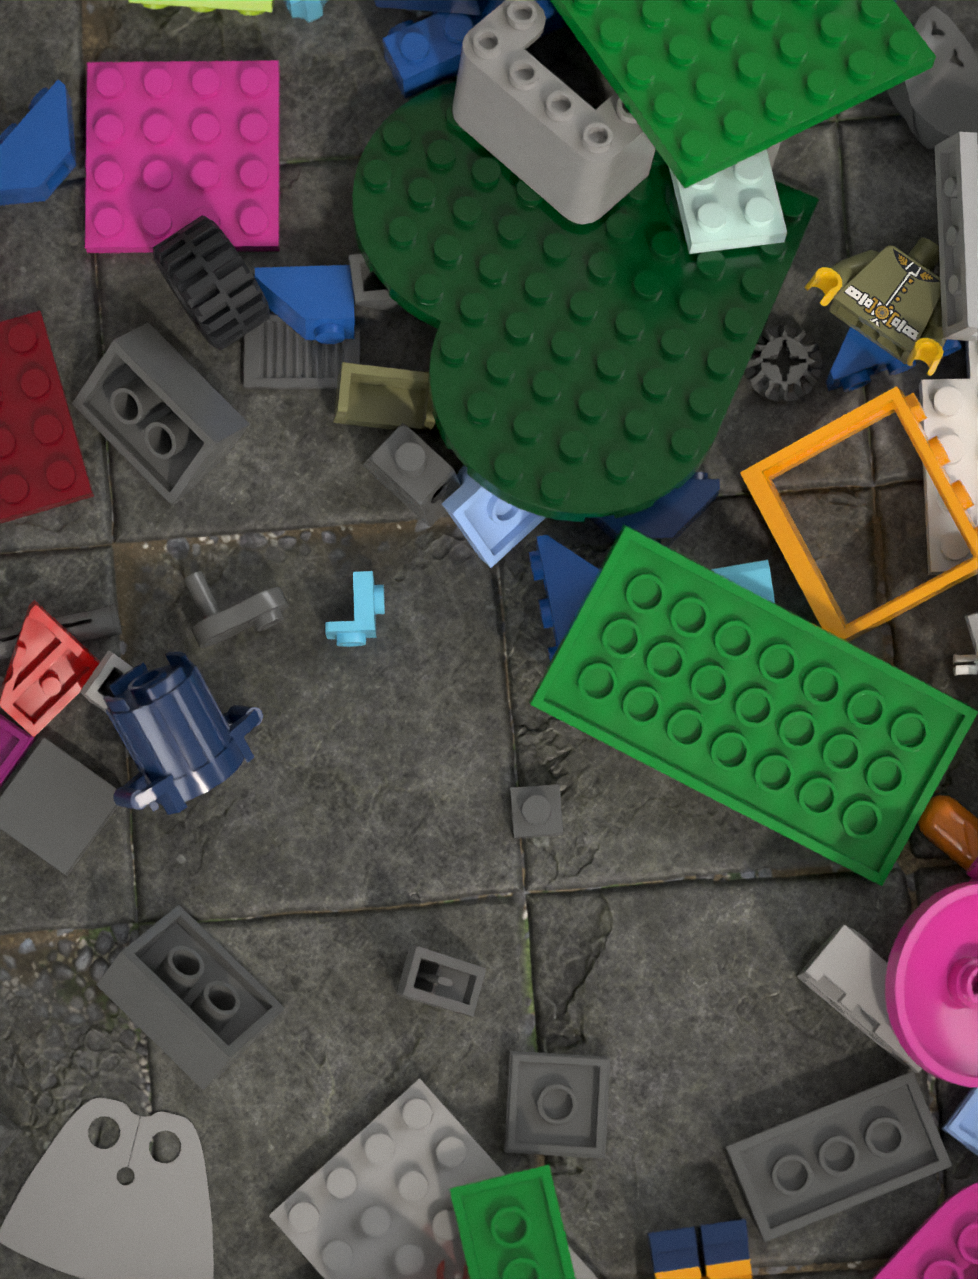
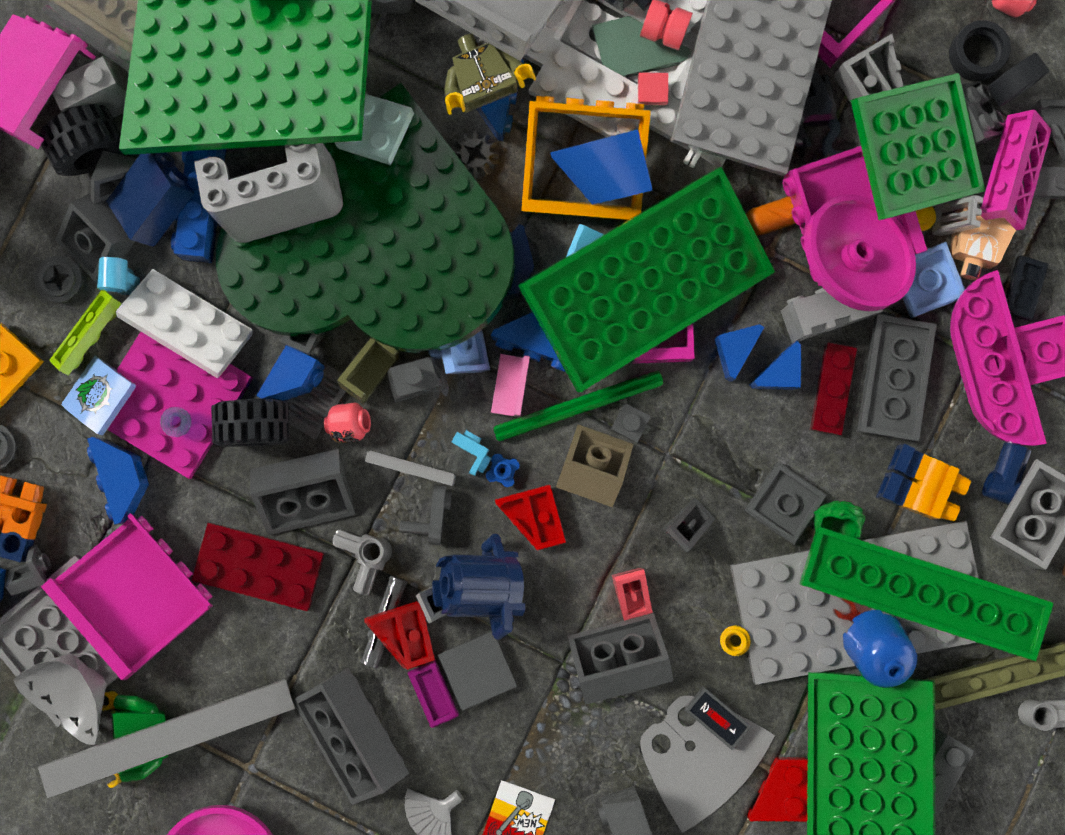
camera: 60 degrees left, 5 degrees up
(126, 59) = (98, 395): none -> light blue slope
(130, 541) = (361, 547): none -> light grey axle
(145, 170) = (167, 418): none -> clear light blue plate
(188, 1189) = (717, 718): none -> tile
(283, 541) = (410, 468): none -> light grey tile
(293, 959) = (632, 593): none -> coral slope
(294, 415) = (347, 422): none -> coral head
(296, 112) = (184, 323): none -> white plate
(305, 1138) = (728, 647): none -> yellow plate
(320, 755) = (534, 516): none -> red wing
(350, 683) = (505, 478): none -> blue plate
(443, 795) = (595, 466): none -> dark tan slope
(485, 610) = (510, 385): none -> bright pink panel
(516, 722) = (578, 405): none -> green axle
(581, 1191) = (841, 518): none -> green hair
(678, 805) = (674, 349): none -> dark pink panel
(737, 895) = (735, 349): none -> blue slope
(740, 981) = (783, 372): none -> blue slope
(765, 1075) = (833, 389): none -> dark red plate
(871, 549) = (606, 167): none -> blue slope

